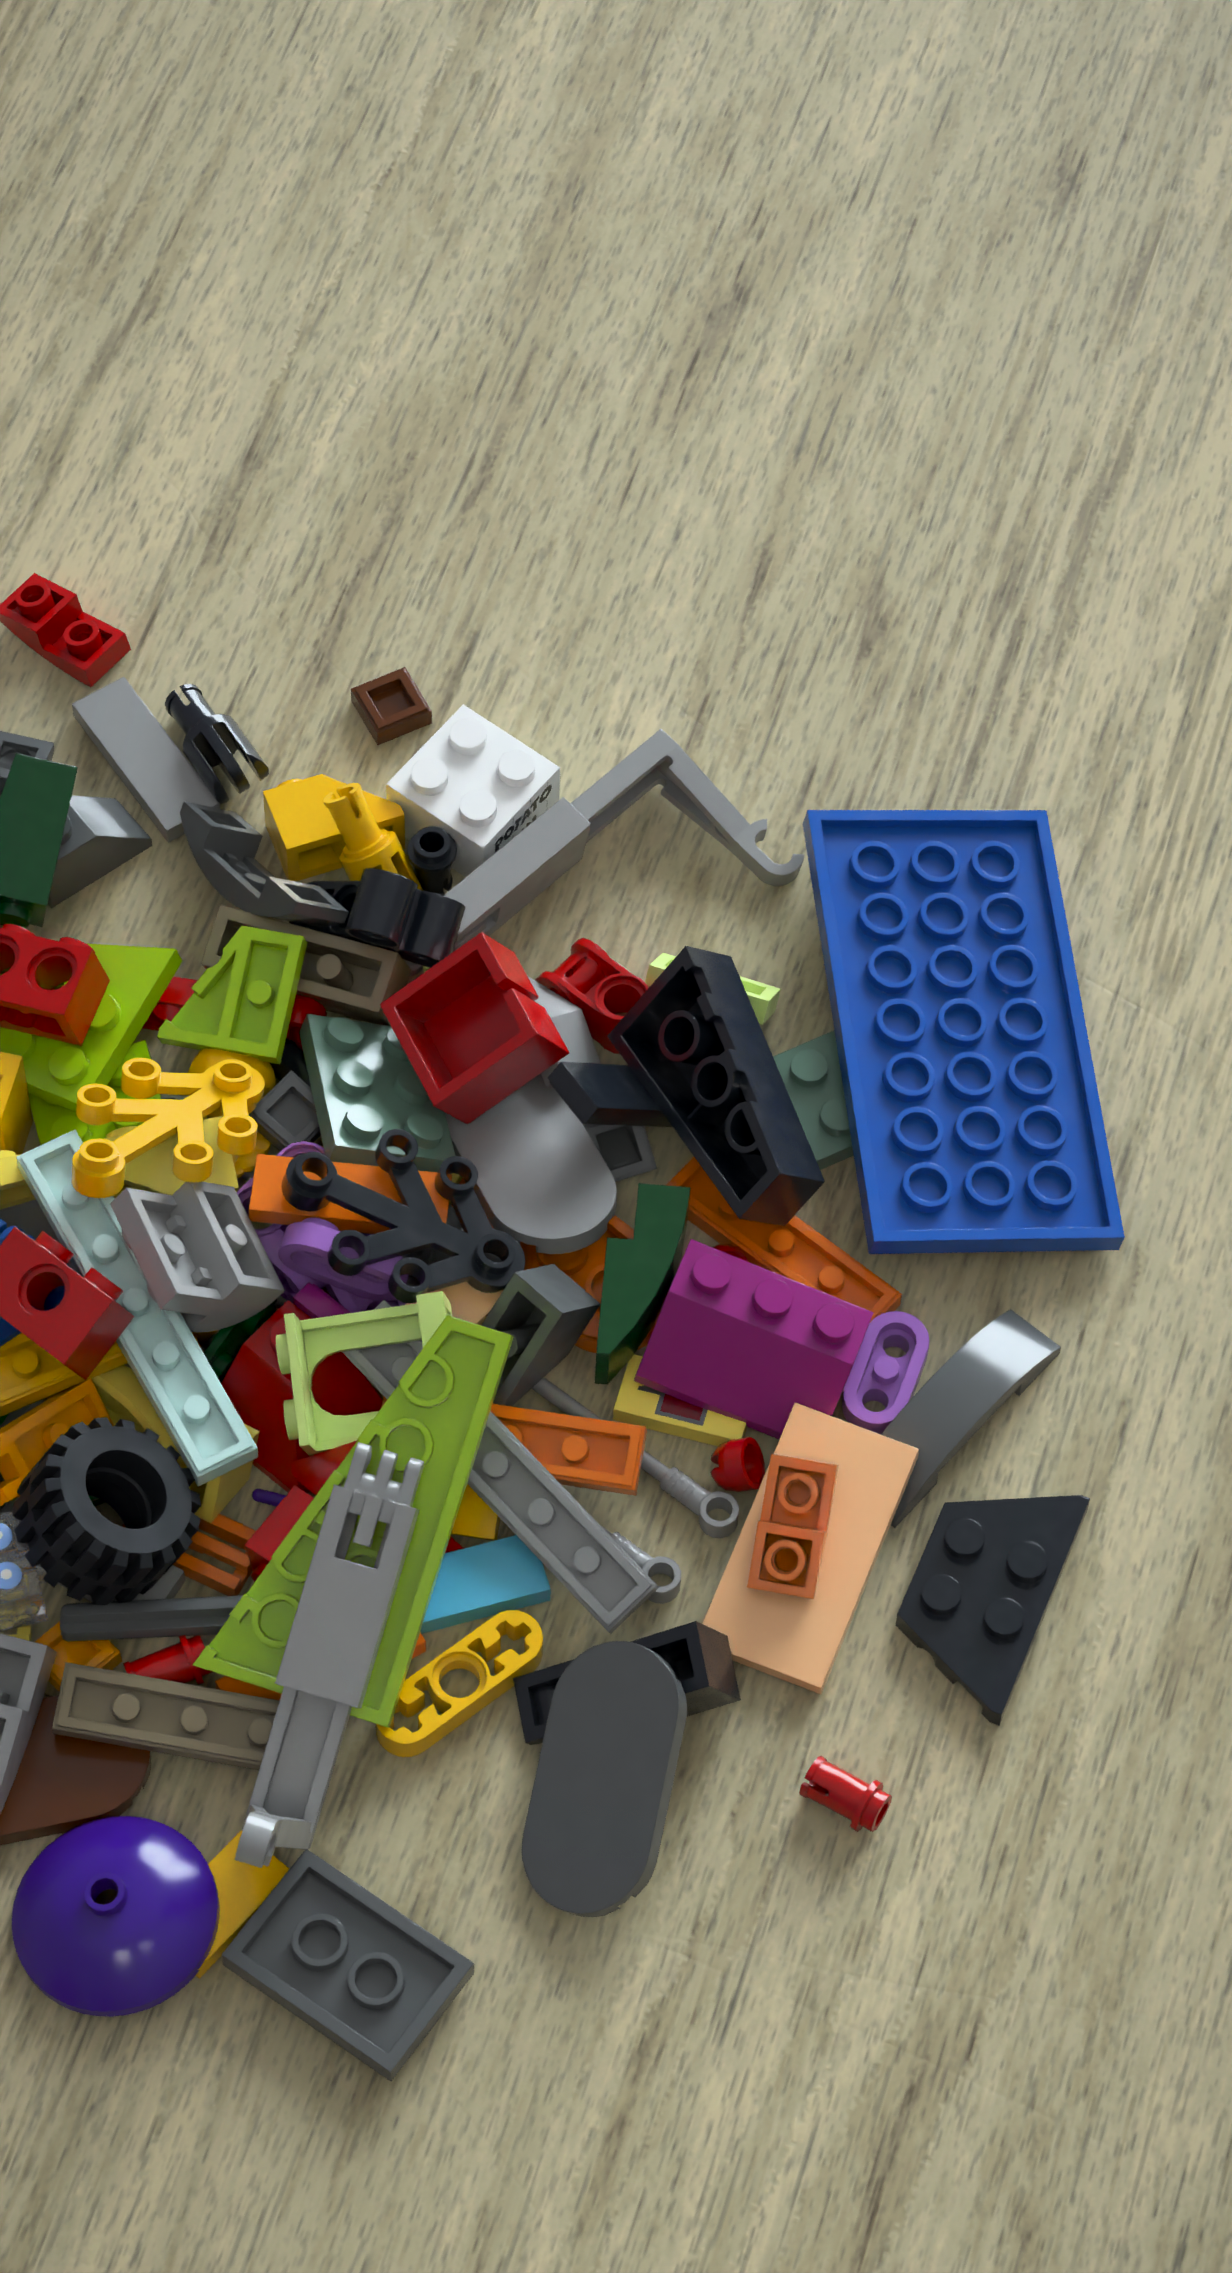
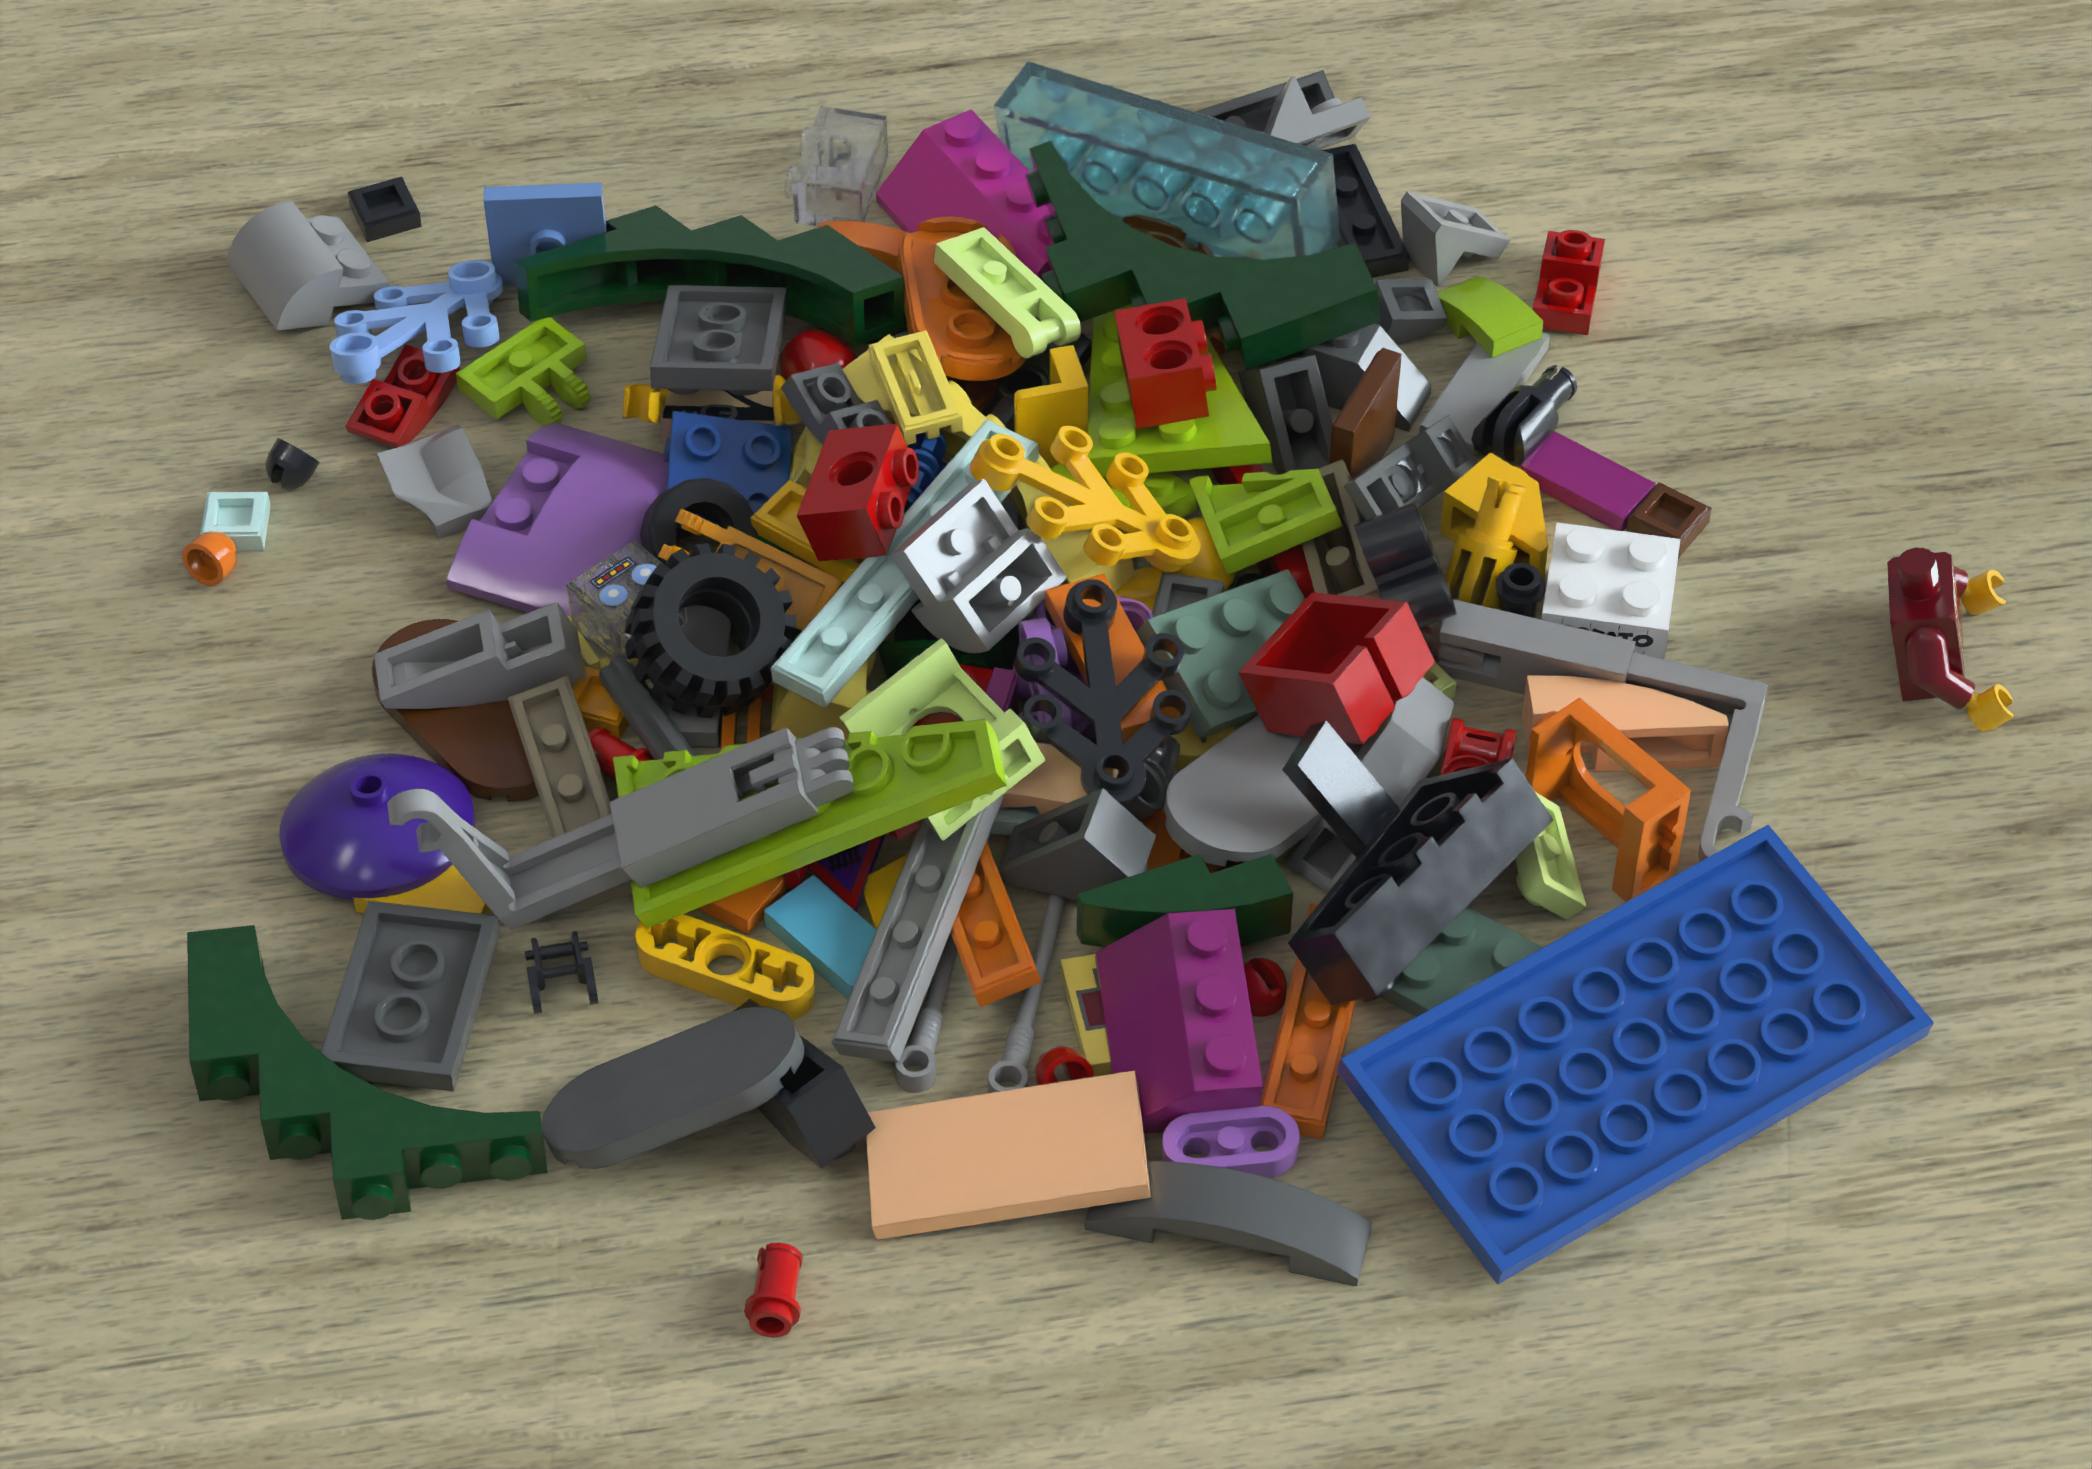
camera: 65 degrees right, 10 degrees down
(67, 707) = (1490, 315): none -> lime slope
(101, 912) = (1291, 412): none -> dark grey slope
(173, 870) = (1369, 416): none -> reddish brown tile
(313, 740) = (1587, 480): none -> magenta tile
(326, 2128) = (312, 1107): none -> dark green arch
(391, 1806) = (582, 967): none -> black piece
(608, 863) = (1661, 724): none -> light nougat slope
(659, 583) = (1929, 633): none -> dark red torso
(762, 910) = (1644, 831): none -> orange panel
(792, 1526) = (997, 1128): orange slope -> none
(989, 1588) = (1060, 1324): black wing -> none

